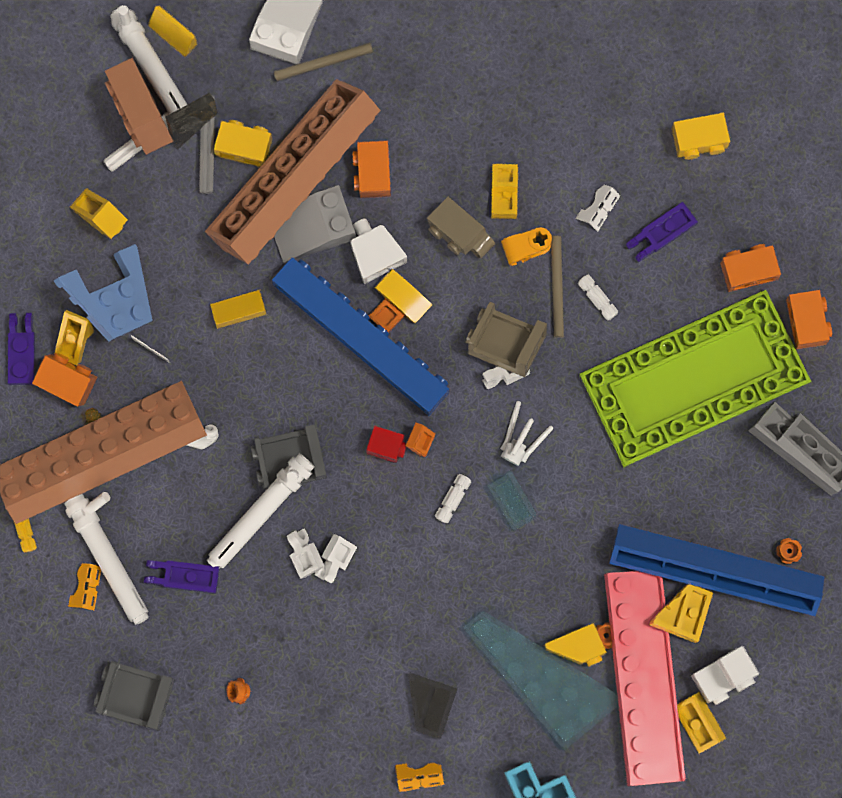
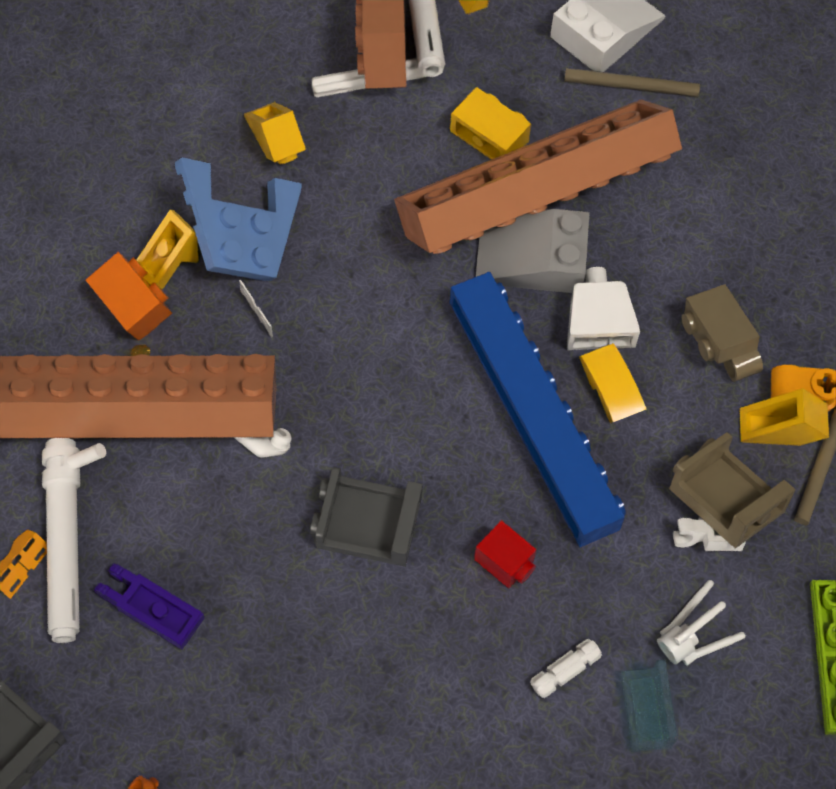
camera: 20 degrees right, 15 degrees down
(21, 352) = (95, 243): dark purple hinge -> none
(190, 119) = (439, 69): clear smoke wing -> none
(207, 157) = (442, 117): light grey axle -> none
(238, 309) = (390, 311): yellow slope -> none
(287, 481) = (348, 540): white cylinder -> none
(306, 556) = (328, 652): white plate -> none
(337, 555) = (371, 672): white plate -> none
(373, 168) = (640, 219): orange brick -> none
(386, 315) = (581, 397): orange tile -> none
(420, 439) = (555, 569): orange tile -> none
(504, 191) = (800, 315): yellow slope -> none
(522, 273) = (785, 420): none -> yellow slope

